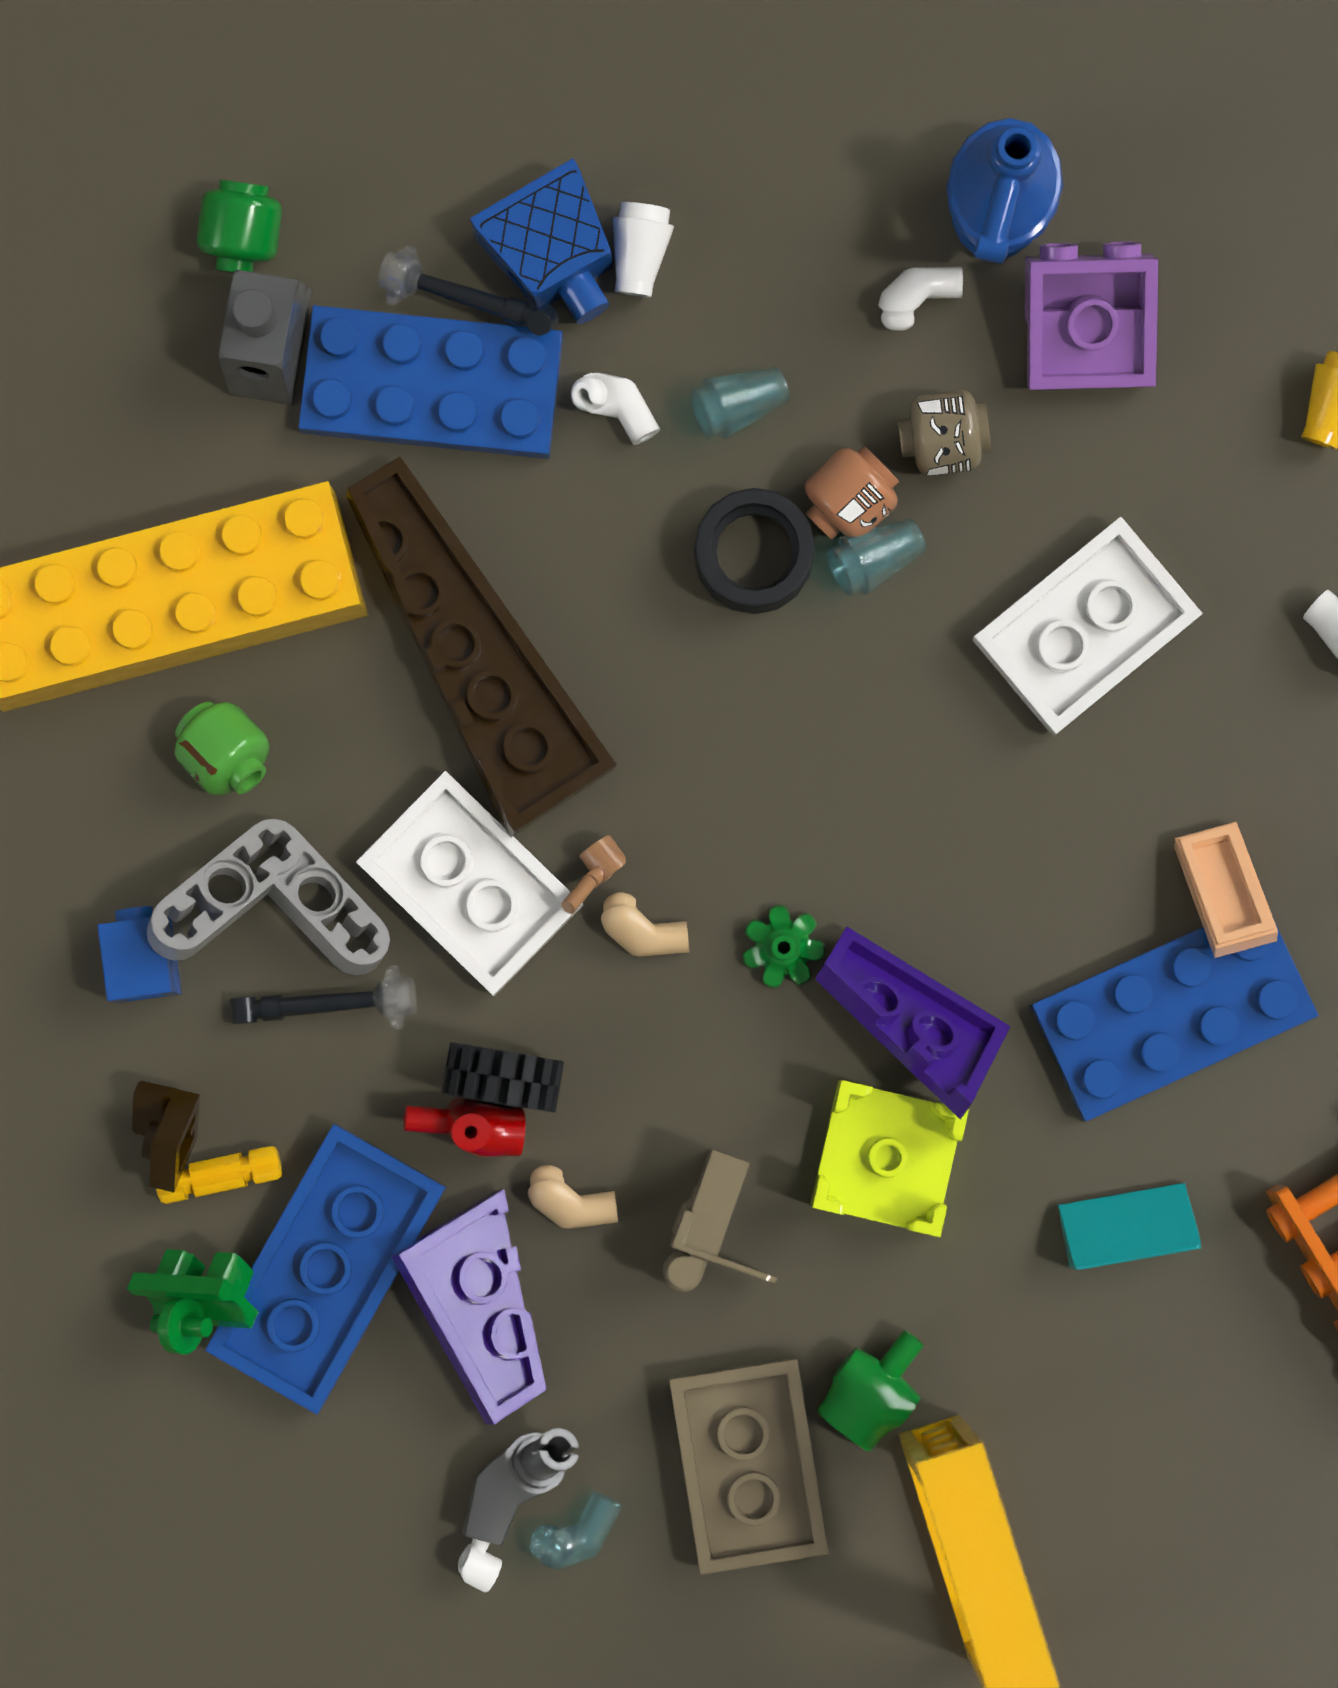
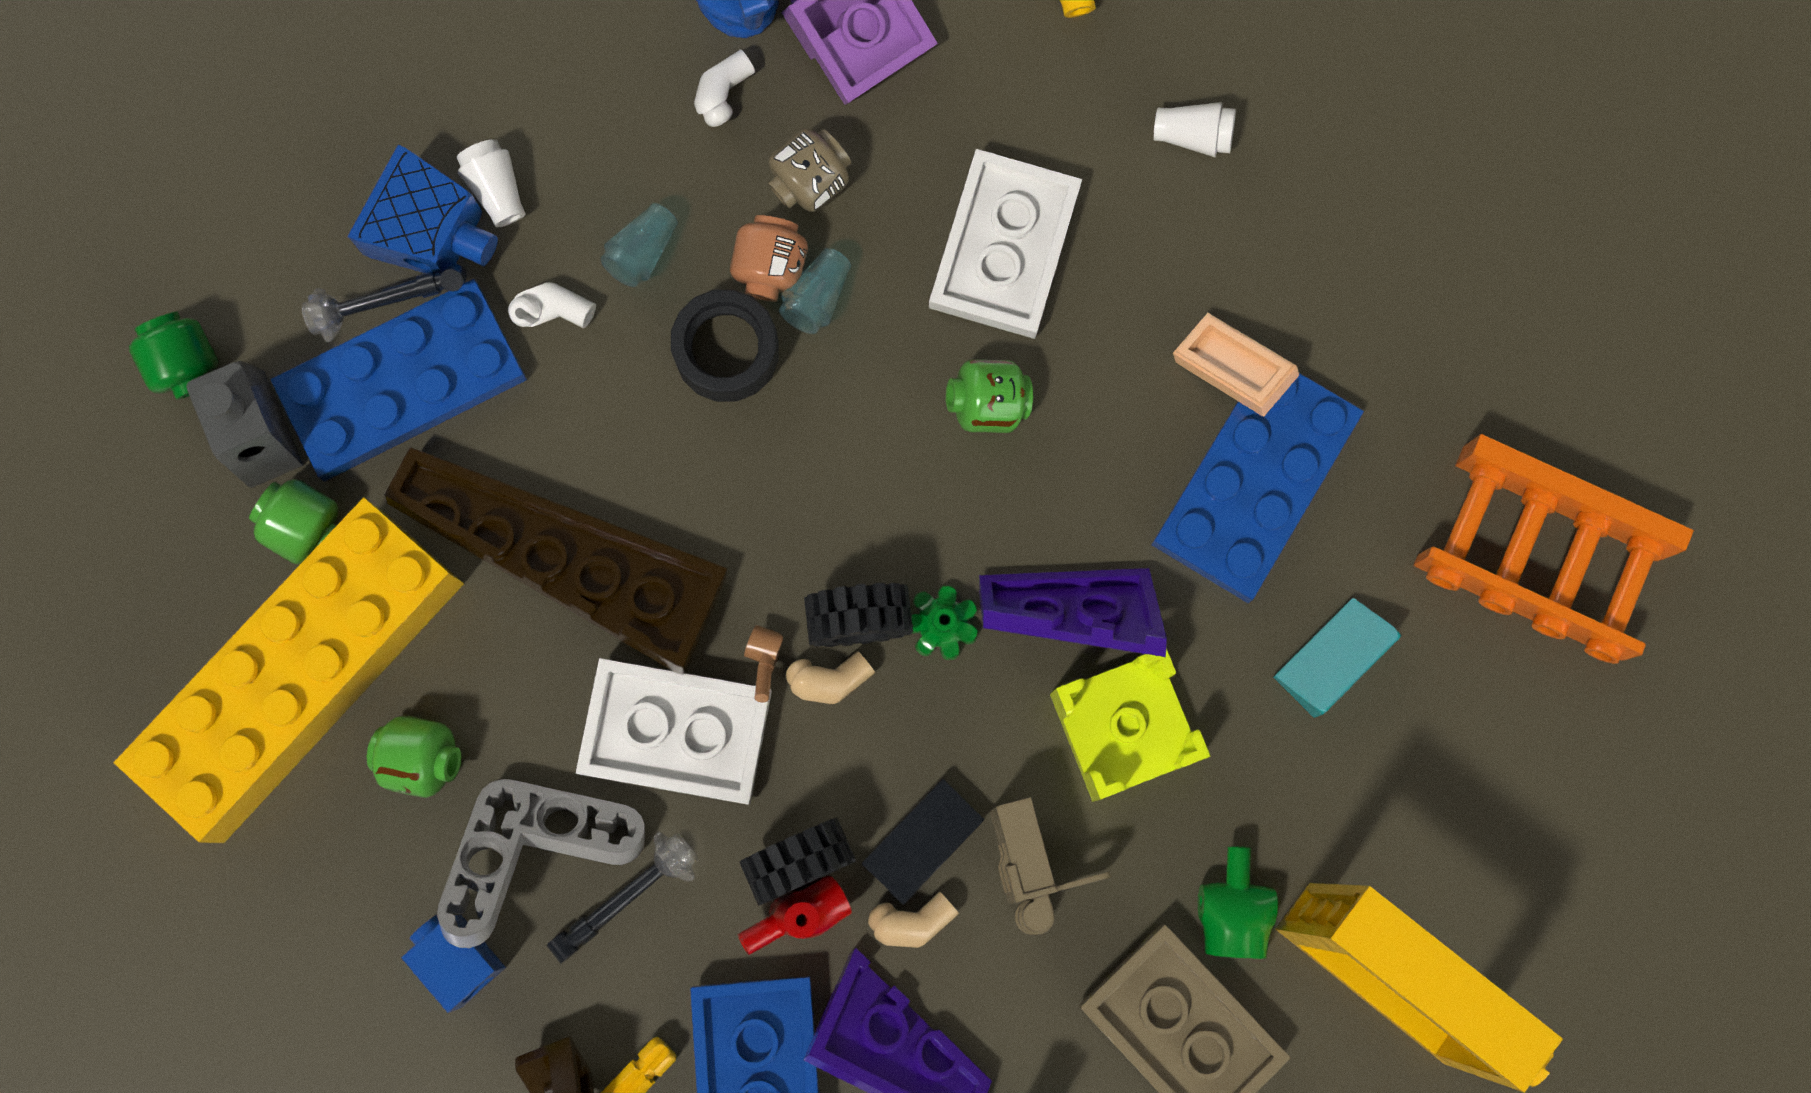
camera: 45 degrees left, 5 degrees down
(252, 457) = (293, 519): none -> bright green head
(629, 1135) = (923, 841): none -> black tile
(707, 890) = (858, 614): none -> black tyre
(970, 765) = (990, 396): none -> bright green head

